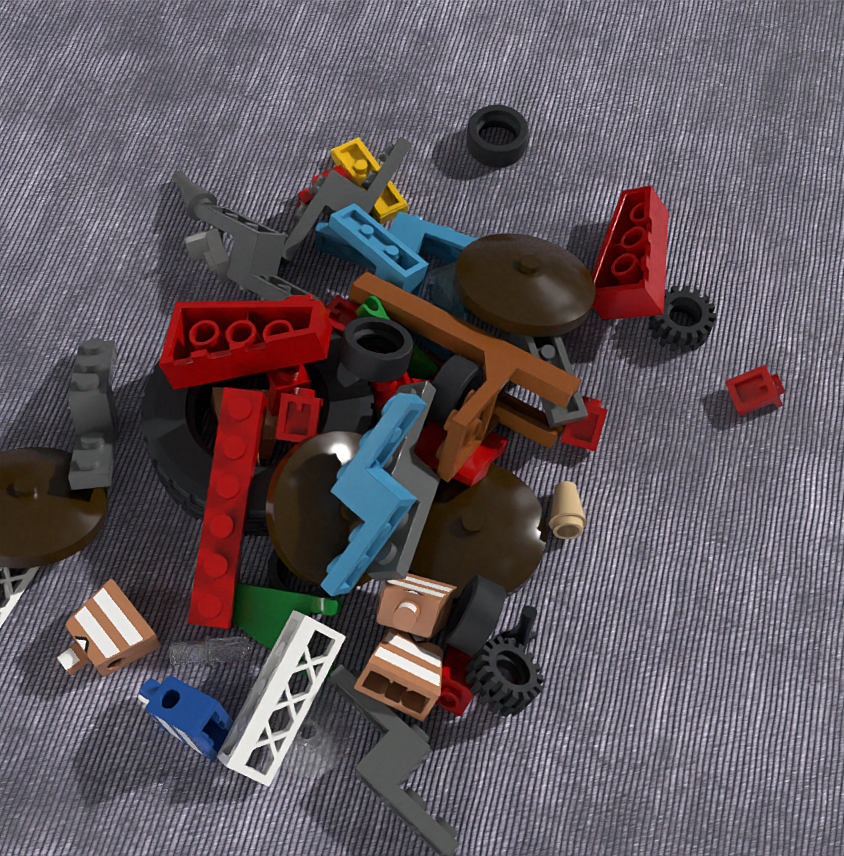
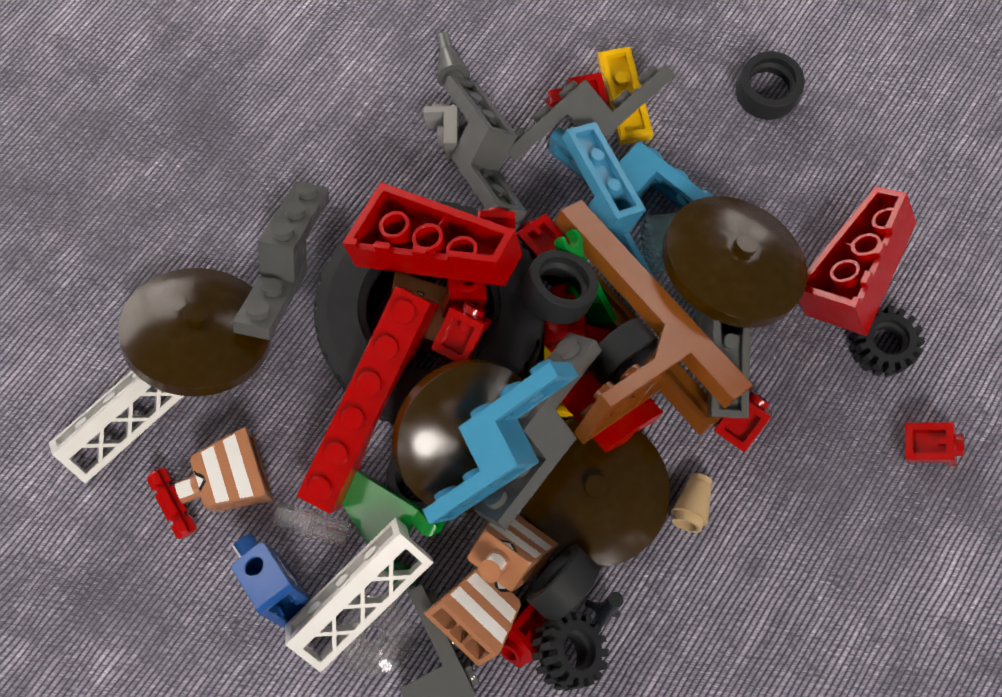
camera: 25 degrees right, 10 degrees up
(57, 681) = (172, 507): none -> red axle

